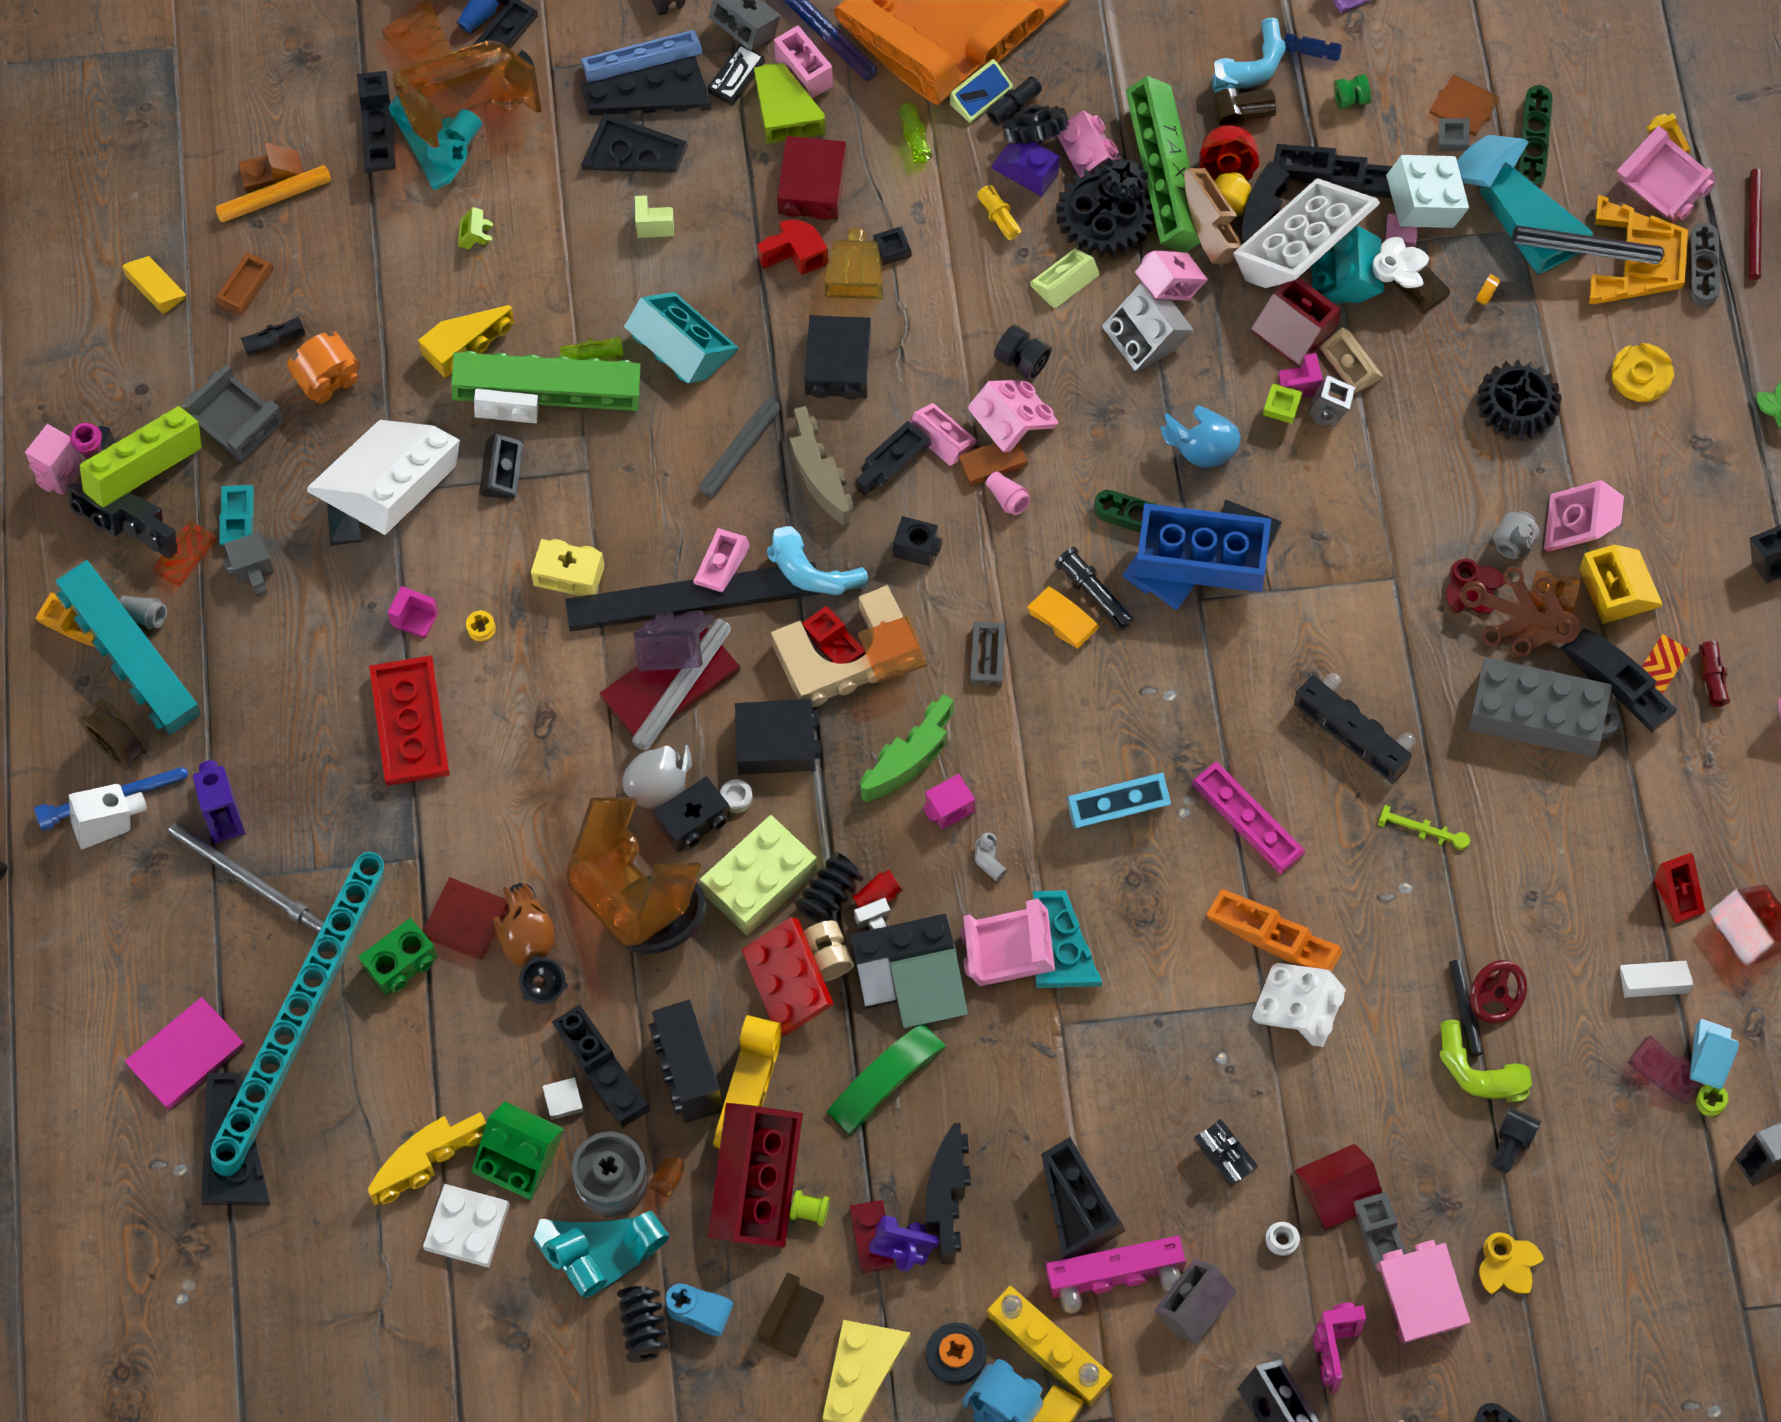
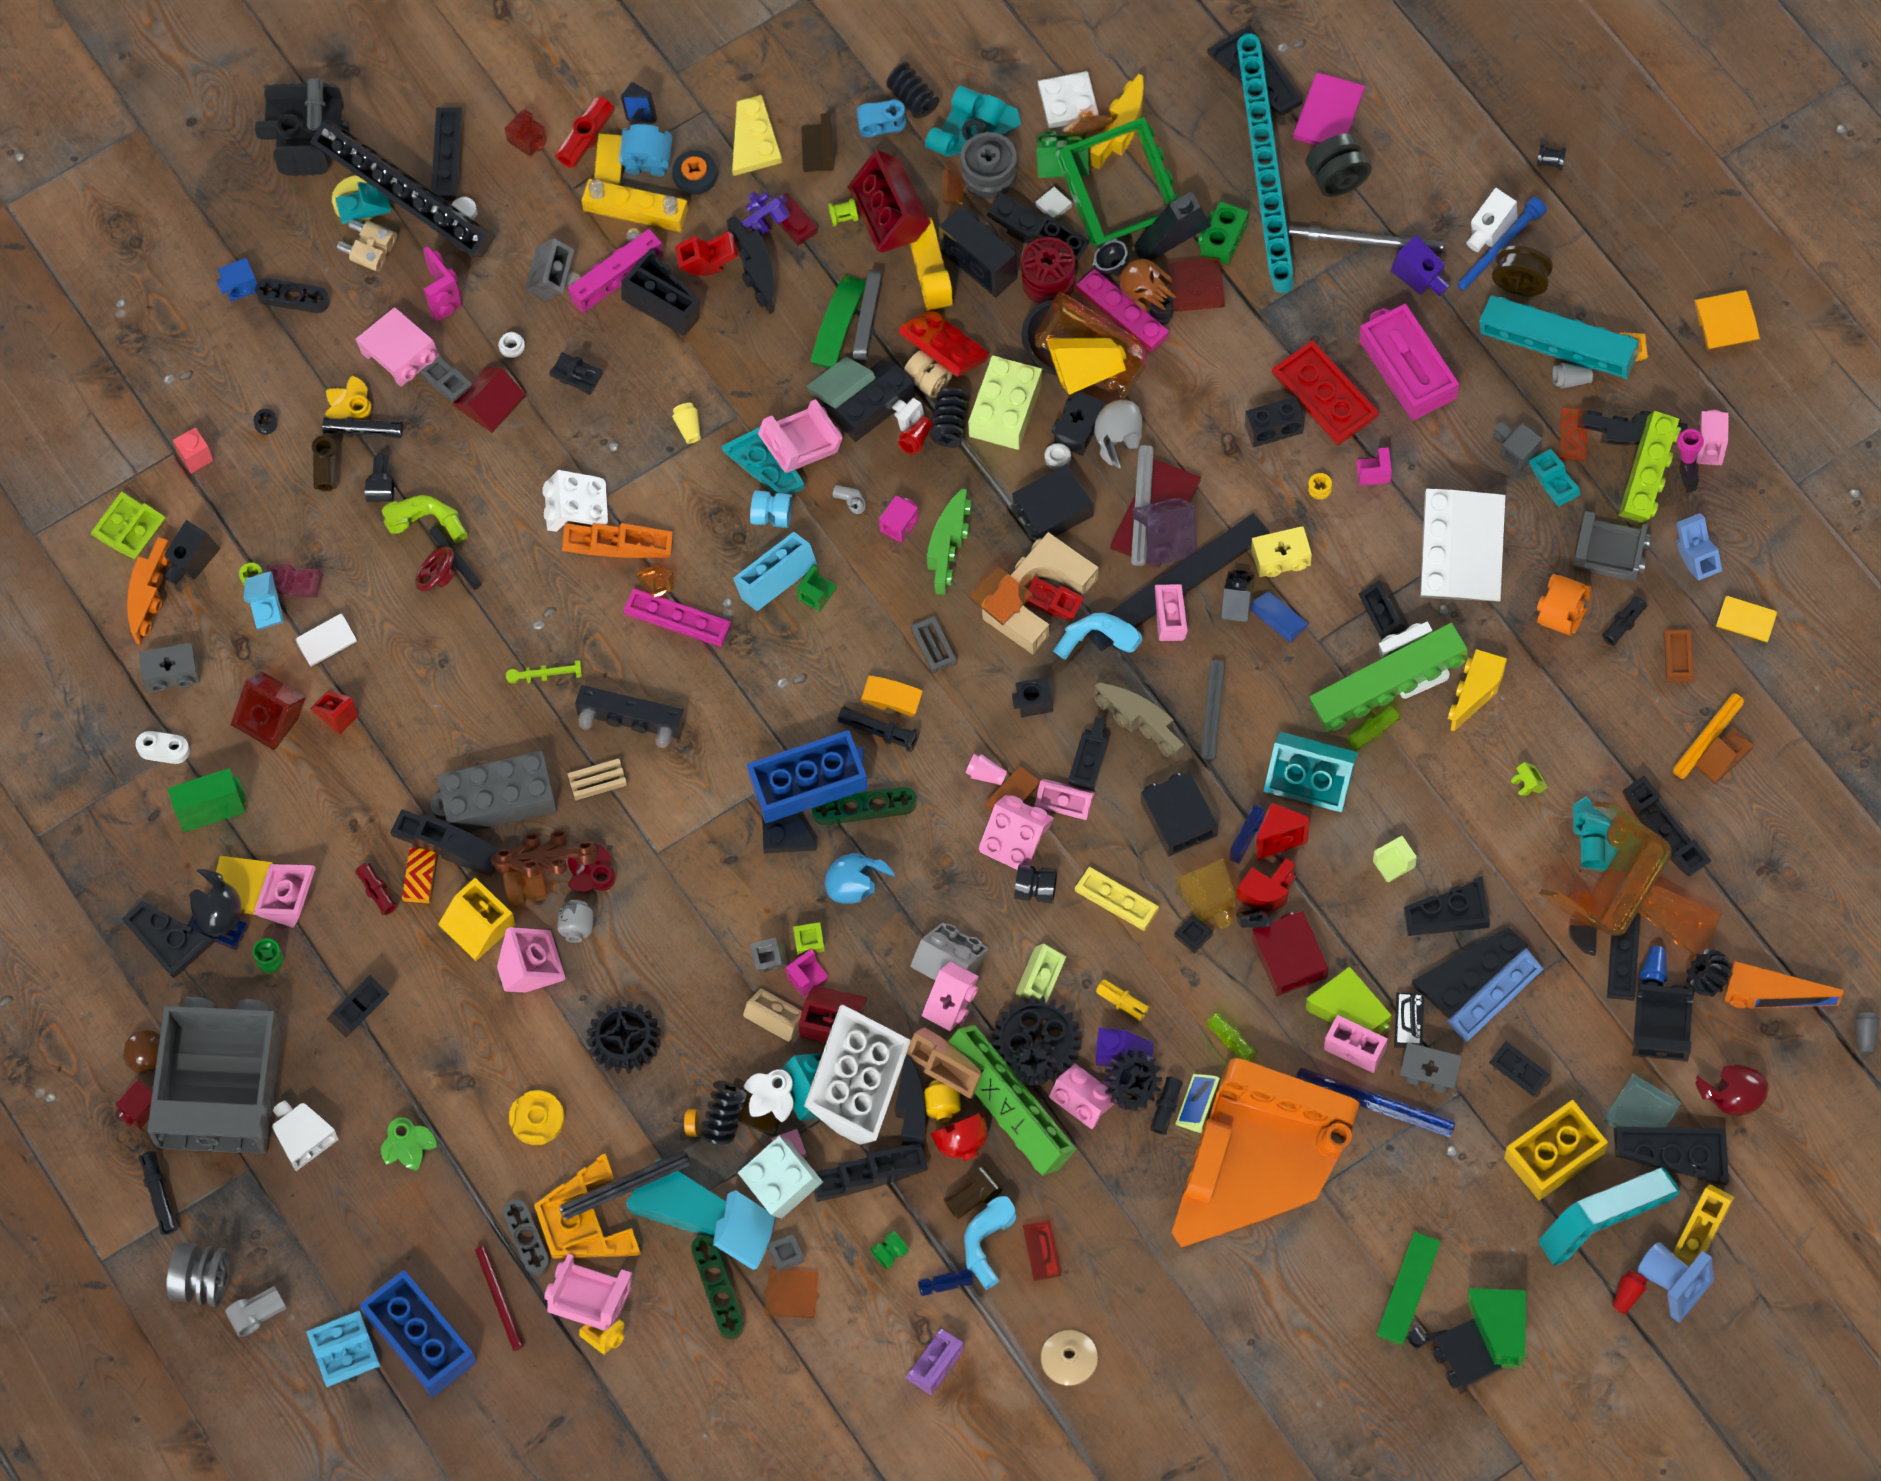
camera: 155 degrees right, 0 degrees up
(151, 364) = (1696, 549): none -> medium blue brick
(223, 959) = (1338, 165): none -> pearl dark grey wheel
(301, 701) = (1408, 361): none -> dark pink piece
(456, 979) = (1172, 227): none -> black slope
(471, 1153) = (1087, 122): none -> clear orange dish
(485, 709) = (1274, 422): none -> black brick
(485, 1015) = (1154, 157): none -> green window
(569, 941) = (1122, 310): none -> dark pink plate
(600, 1230) = (966, 131): none -> black bush
(611, 509) = (1278, 616): none -> blue slope
(627, 1018) = (1047, 269): none -> dark red wheel
(638, 854) = (1085, 361): none -> yellow slope
(641, 544) = (1237, 596): none -> slope
(754, 279) = (1281, 832): none -> red slope
(783, 305) = (1246, 834): none -> clear blue tile
(828, 216) = (1253, 918): none -> black tile
(852, 1062) = (867, 315): none -> dark grey beam
(947, 313) = (1116, 898): none -> light yellow tile
(999, 1229) = (704, 257): none -> red brick
(1081, 876) = (771, 509): none -> medium azure wheel
(1083, 770) = (814, 589): none -> green panel
(1124, 1036) = (687, 421): none -> light yellow cone
(1205, 35) = (1041, 1250): none -> clear red tile
(1252, 867) = (656, 580): none -> clear orange slope
(1421, 669) = (594, 770): none -> tan tile
(1455, 272) = (723, 1113): none -> black piece
(1506, 1218) = (362, 427): none -> black pin
(1571, 1190) = (324, 464): none -> dark brown piece
(1628, 1293) = (265, 413): none -> black bush
(1723, 1284) = (193, 450): none -> coral brick

